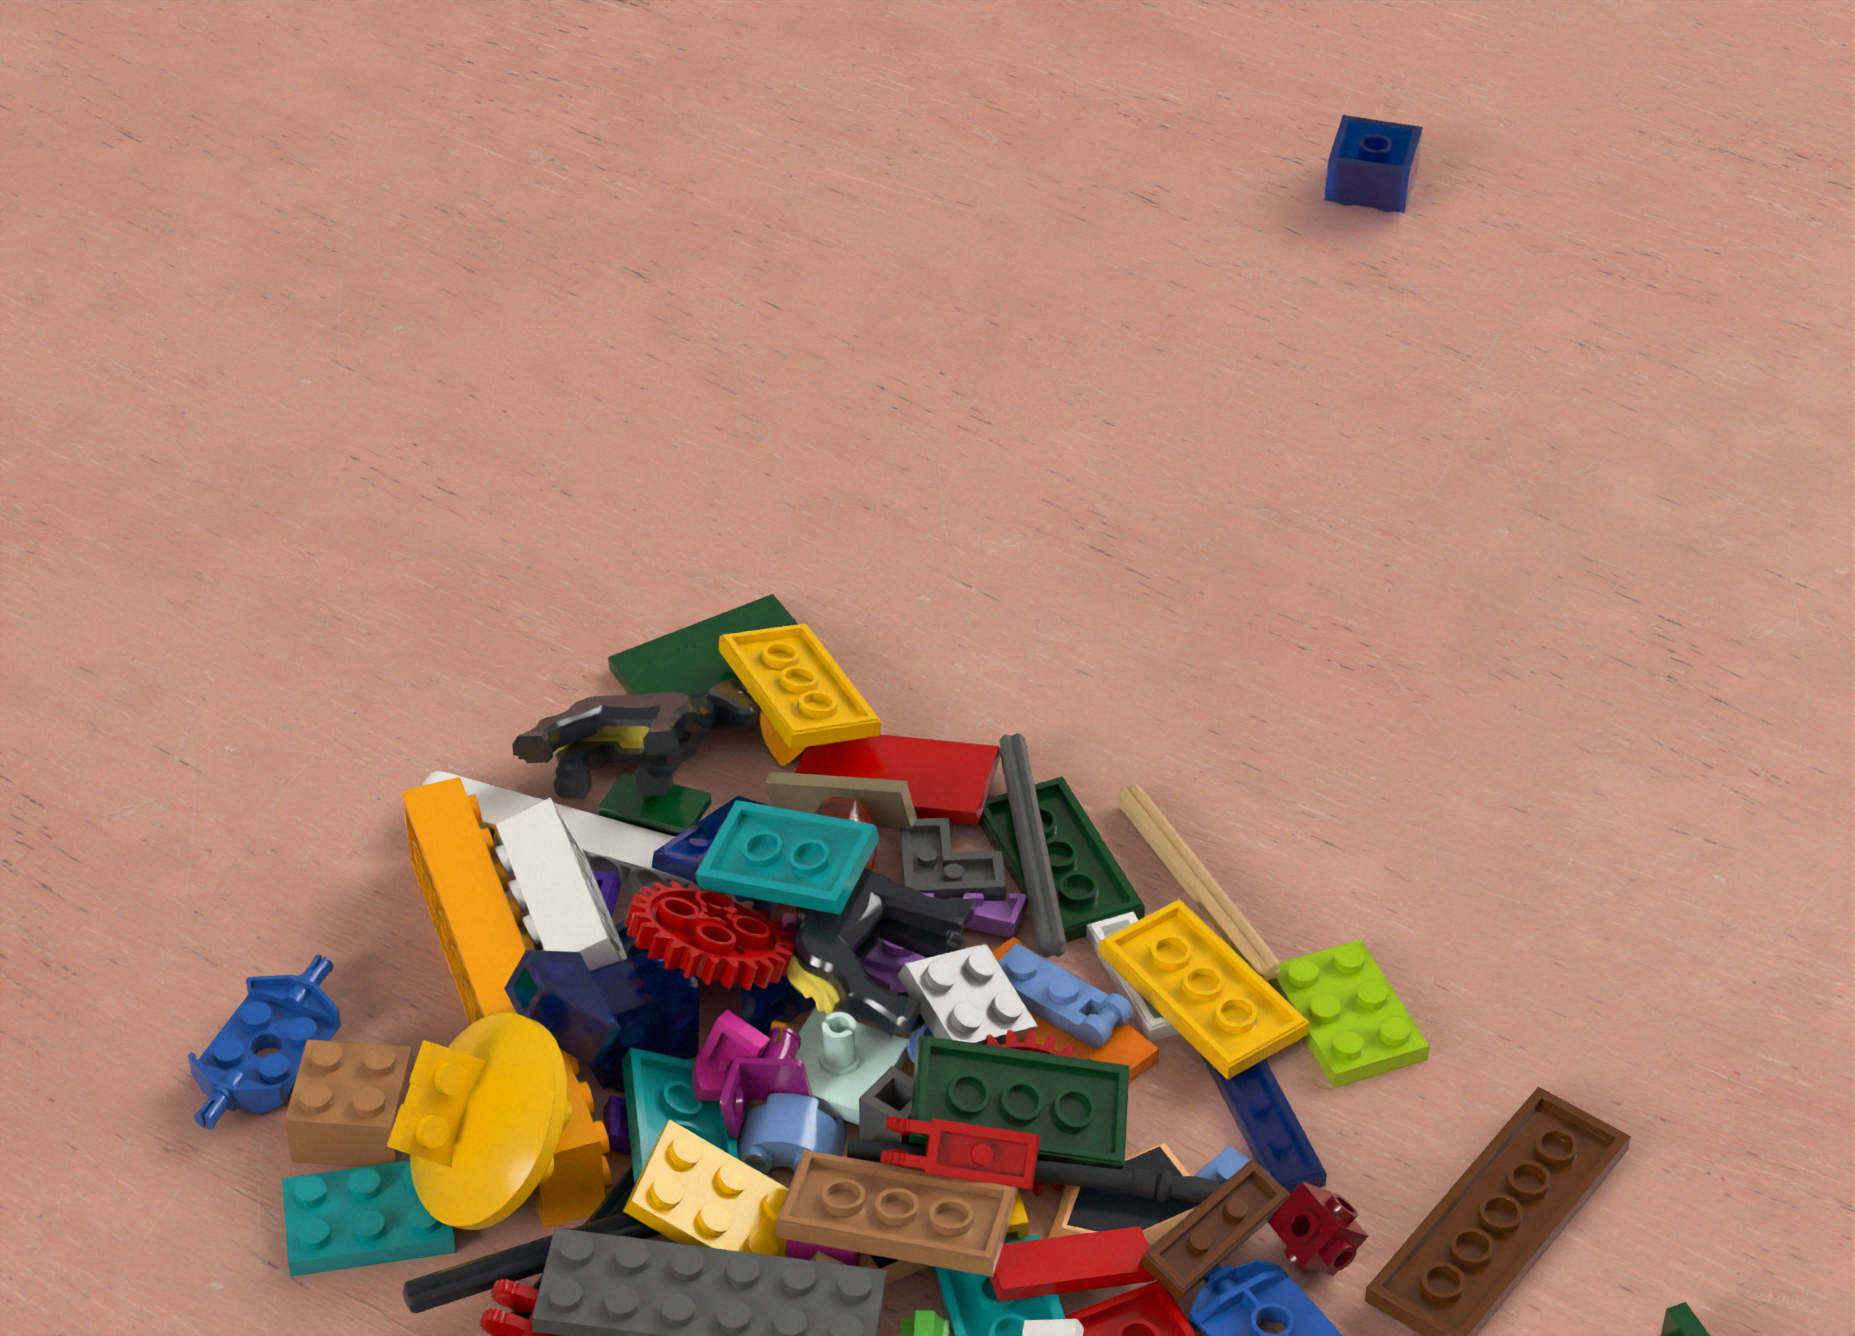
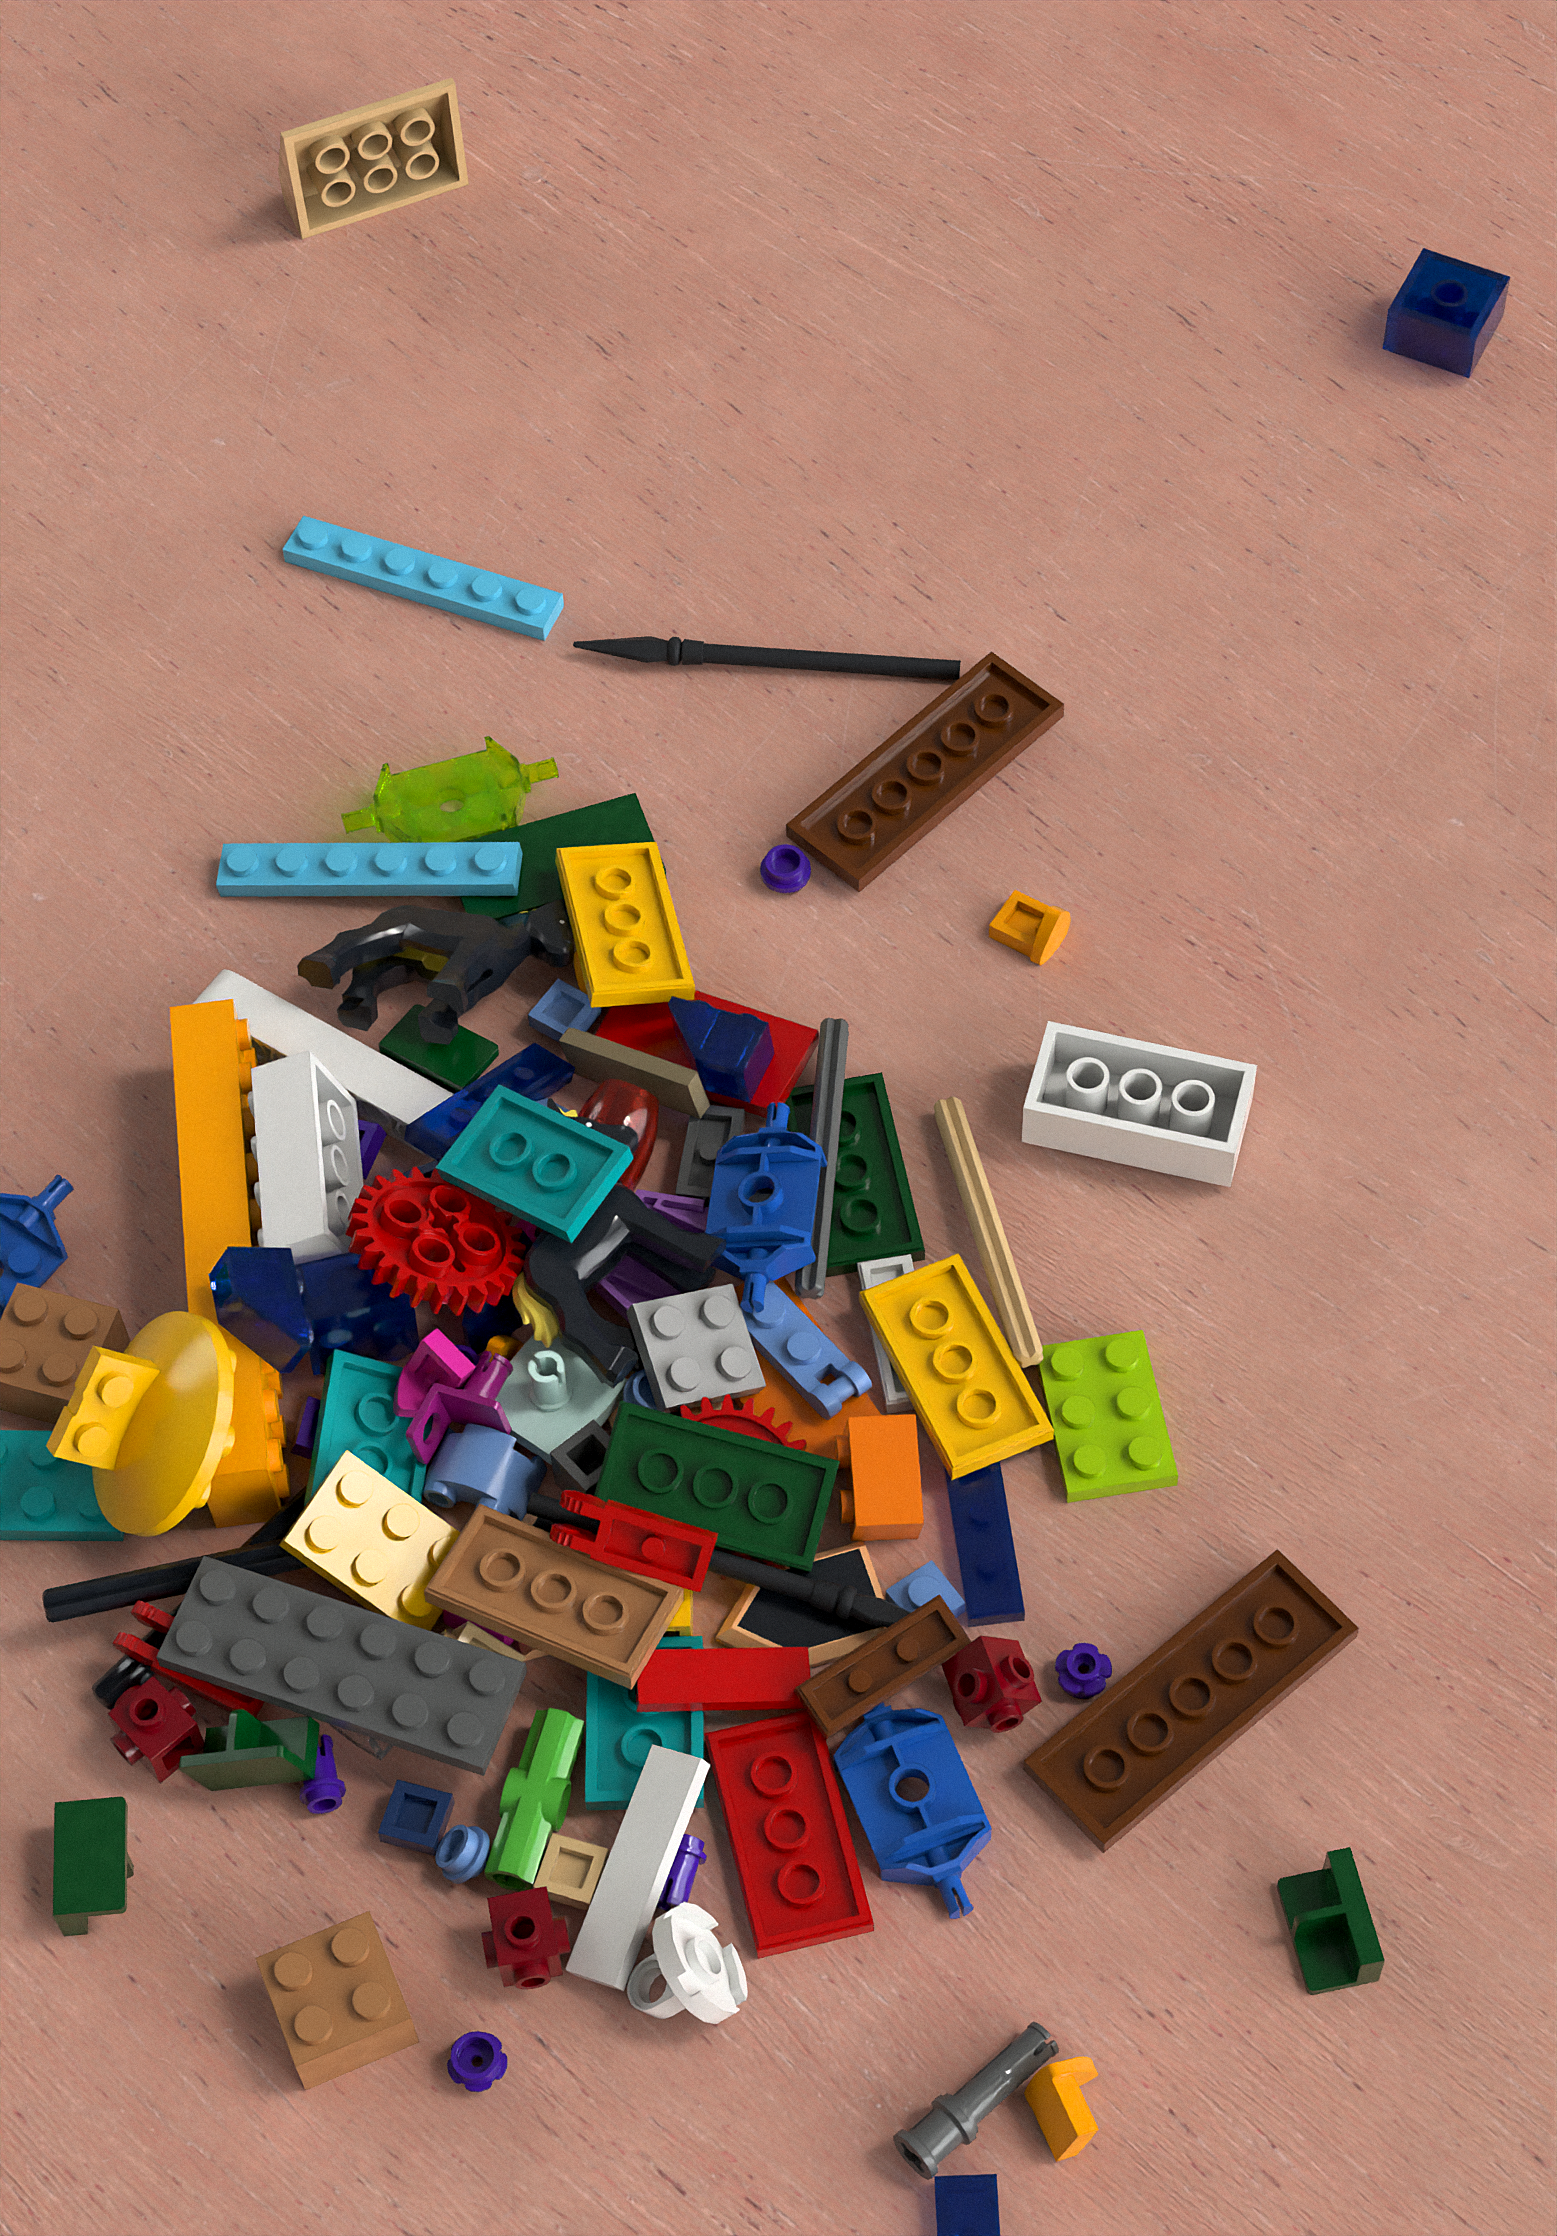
camera: 15 degrees right, 15 degrees up
(398, 145) = (373, 159): none -> tan slope
(527, 458) = (424, 578): none -> medium azure plate
(543, 681) = (370, 869): none -> medium azure plate
(635, 607) = (486, 781): none -> clear neon green plate
(754, 766) = (562, 1008): none -> medium blue plate
(795, 484) = (694, 652): none -> black piece
(926, 634) = (785, 869): none -> dark purple plate
(926, 760) = (723, 1046): none -> clear blue slope
(1009, 900) = (770, 1235): none -> blue plate
(1028, 547) = (924, 771): none -> reddish brown plate
(1159, 651) = (1030, 927): none -> light orange tile
(1167, 1083) = (881, 1477): none -> orange brick
(1304, 763) = (1138, 1103): none -> white brick
(1391, 1223) = (1078, 1684): none -> dark purple plate

